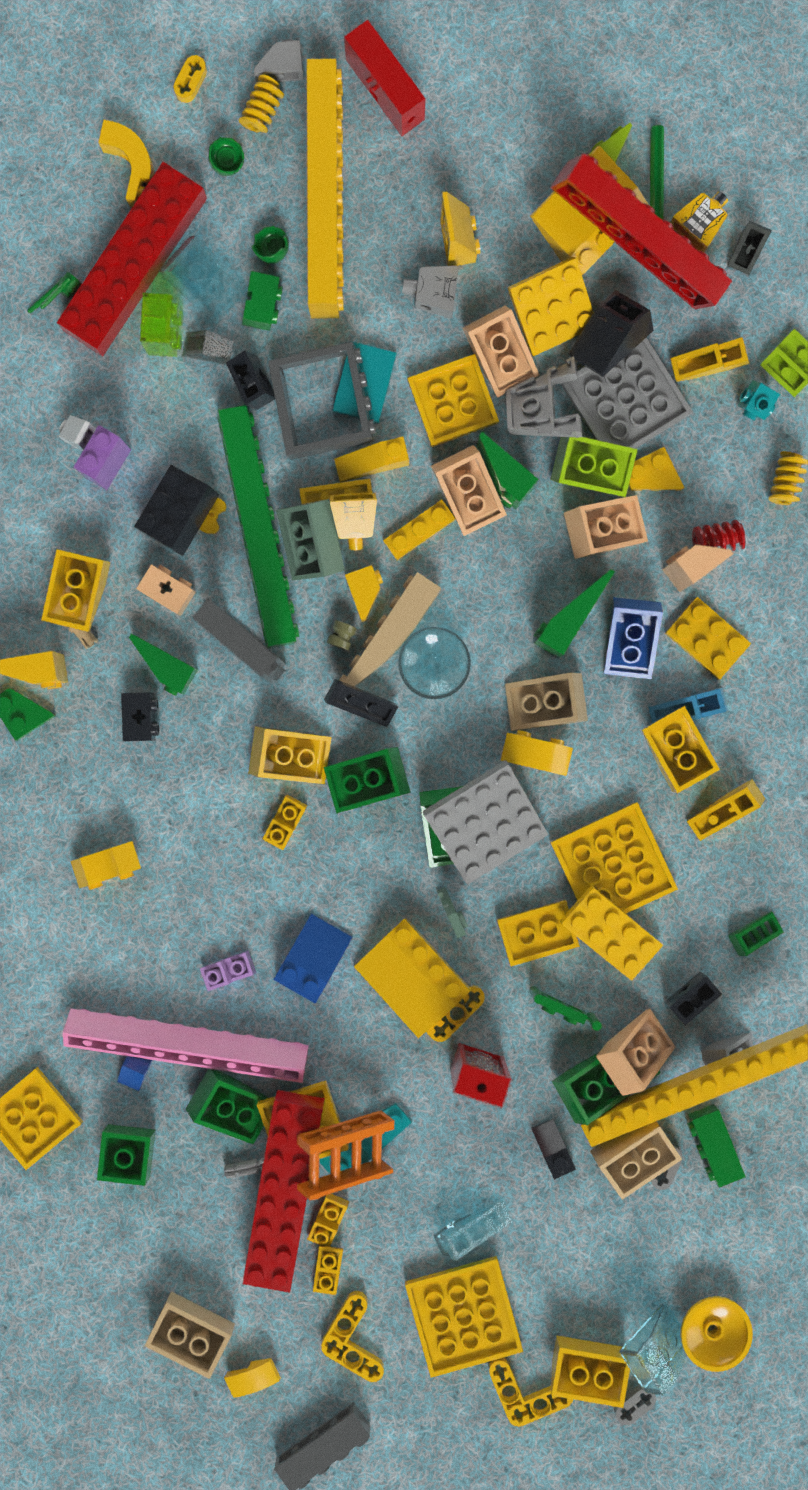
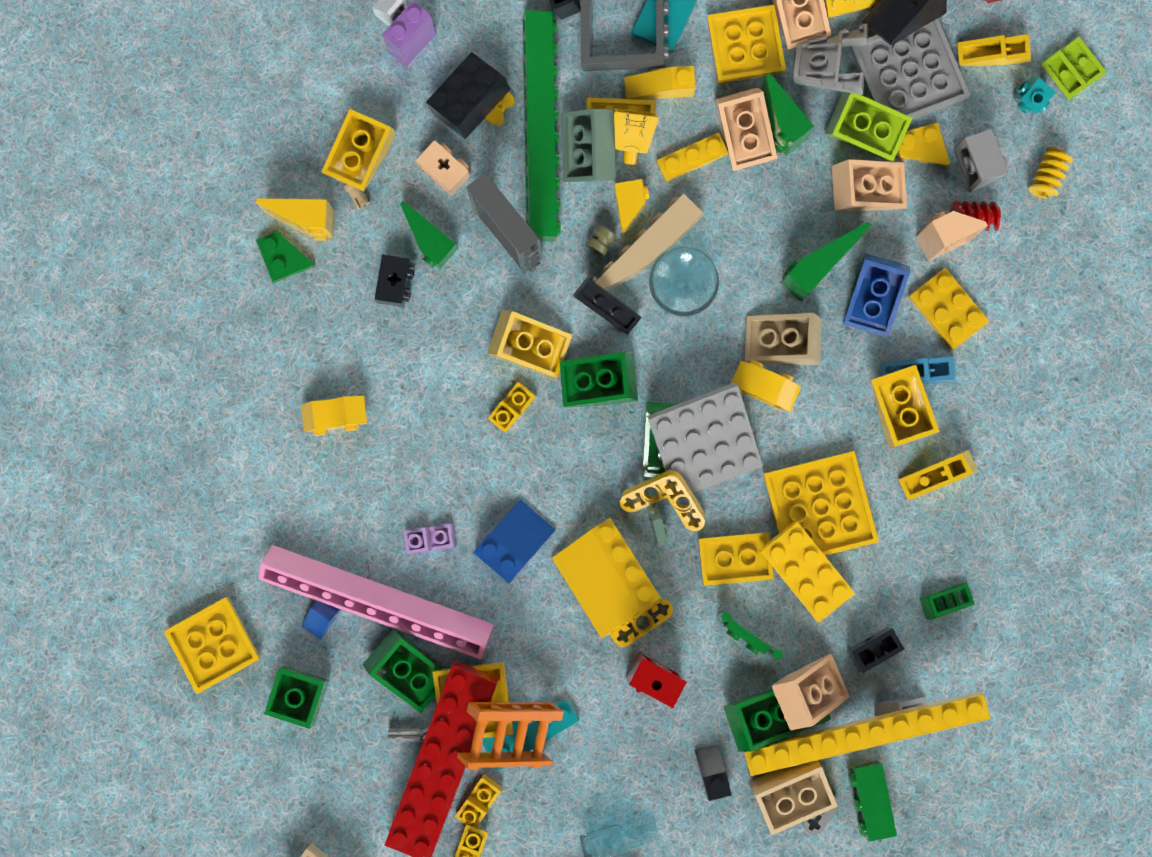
camera: 15 degrees right, 5 degrees down
(455, 880) = (666, 491): none -> yellow beam
(715, 479) = (981, 160): none -> light grey slope

